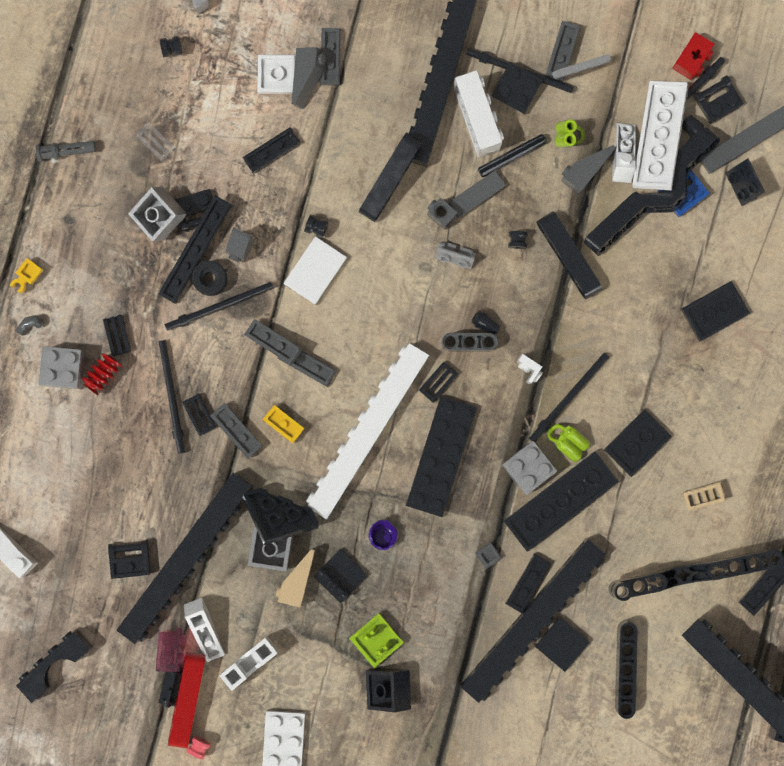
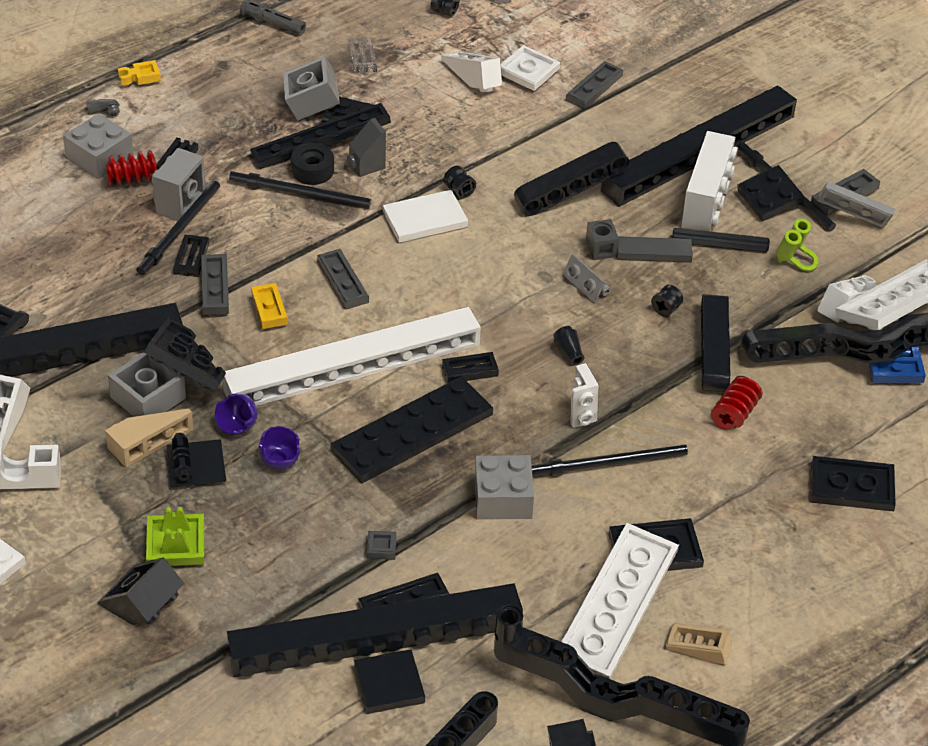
camera: 35 degrees right, 40 degrees down
(148, 370) = (178, 183): none -> light grey brick
(242, 104) = (475, 69): none -> white slope
(271, 150) = (469, 115): black tile -> none
(273, 342) = (326, 236): dark grey plate -> none
(307, 71) = (557, 77): dark grey slope -> none
(337, 528) = (236, 414): none -> dark purple hair
(478, 340) = (536, 349): dark grey beam -> none
(560, 501) = (514, 542): black plate -> none
(570, 441) = (574, 489): lime piece -> none
(584, 170) = (794, 286): dark grey slope -> none
(615, 298) = (736, 403): none -> red piece
(647, 504) = (619, 598): none -> white plate

